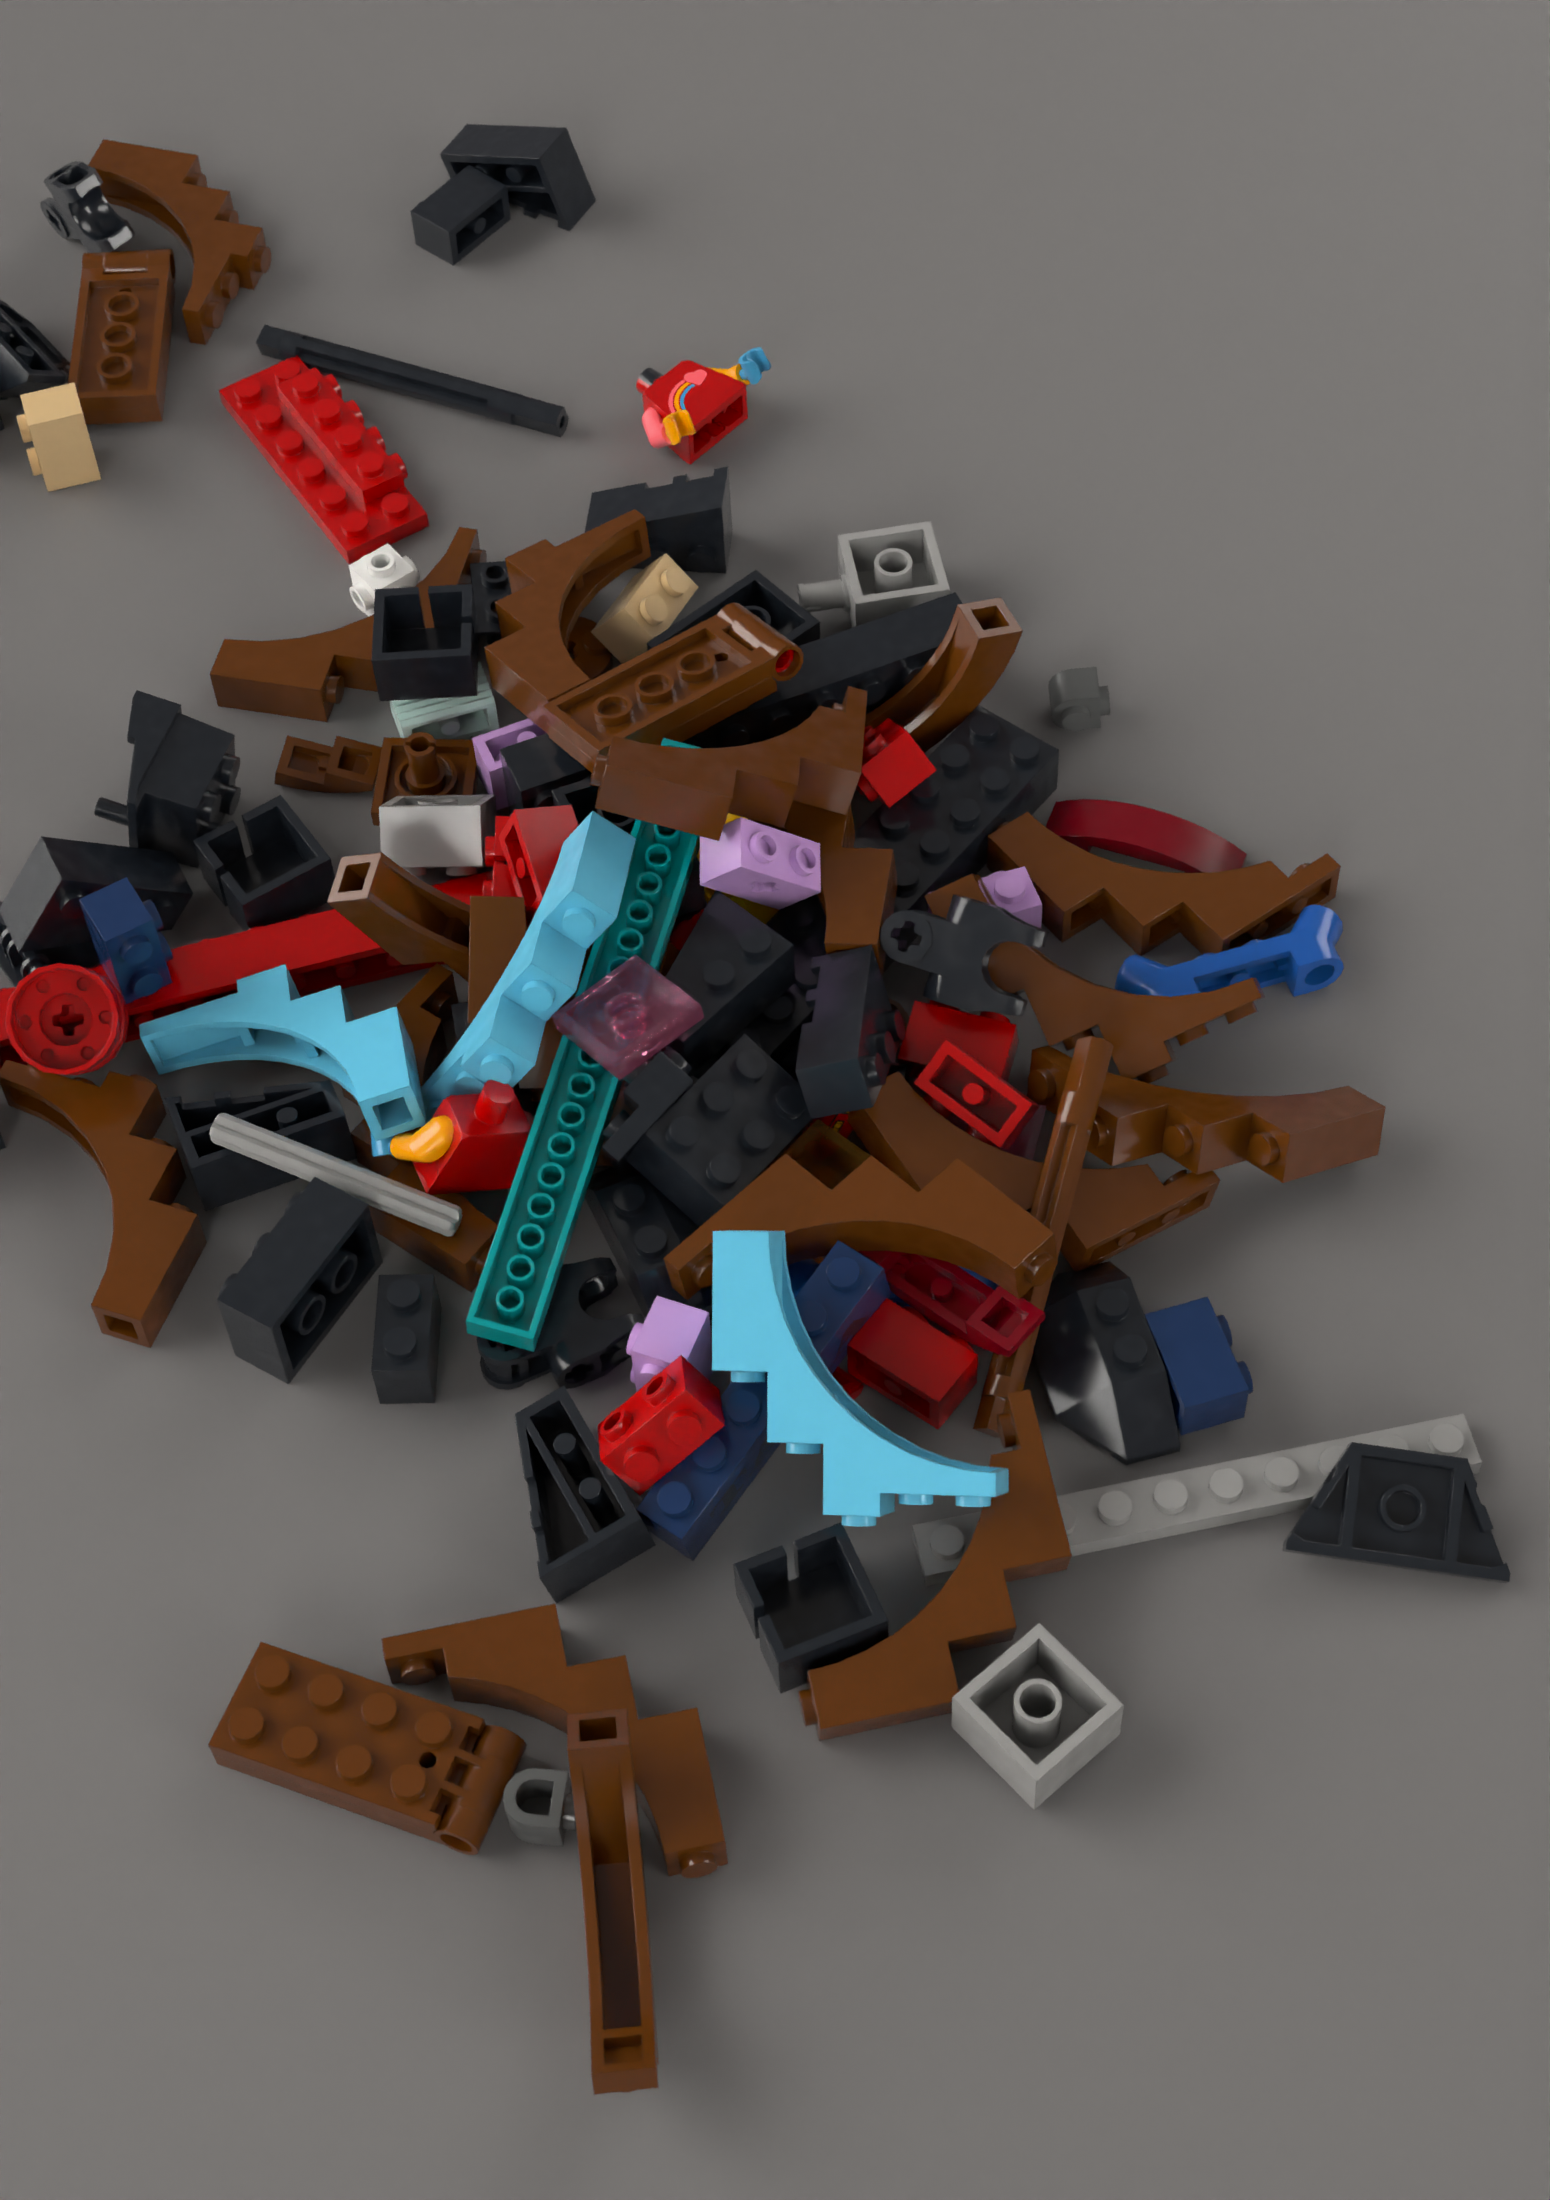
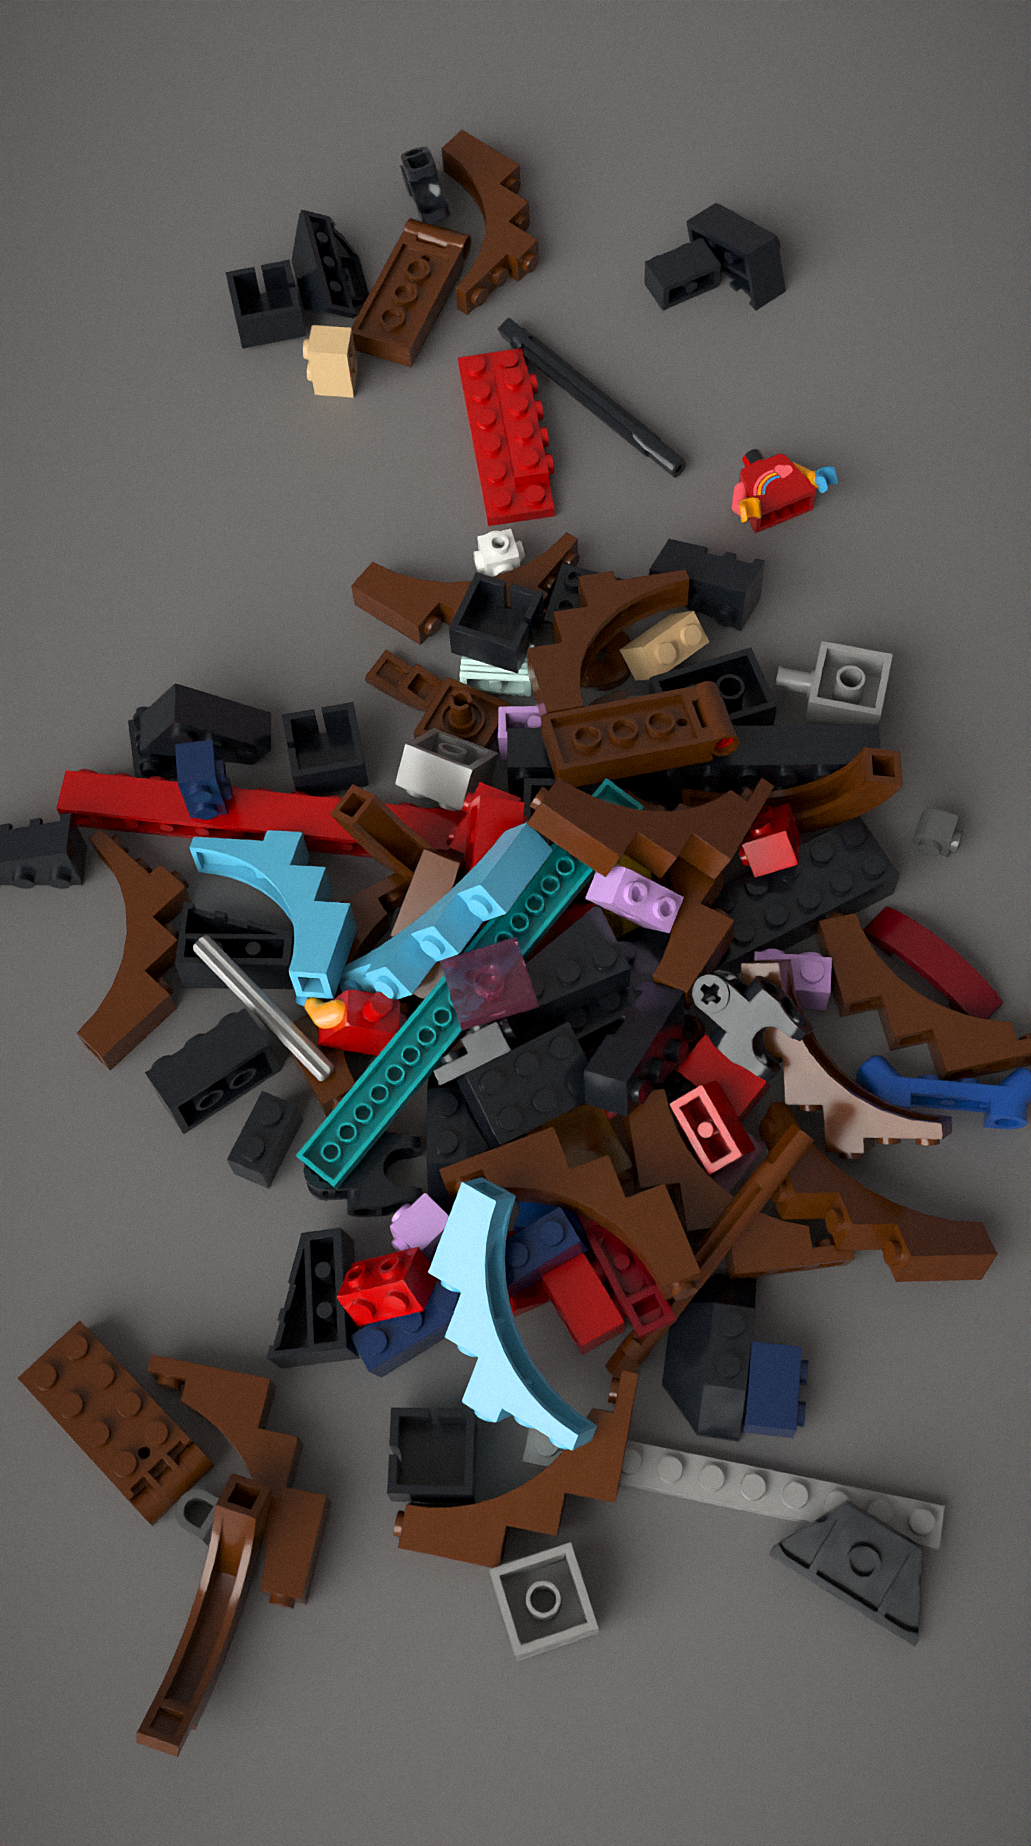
camera: 25 degrees right, 10 degrees up
(46, 996) = (125, 832): red wheel -> none
(177, 779) = (290, 664): black piece -> none

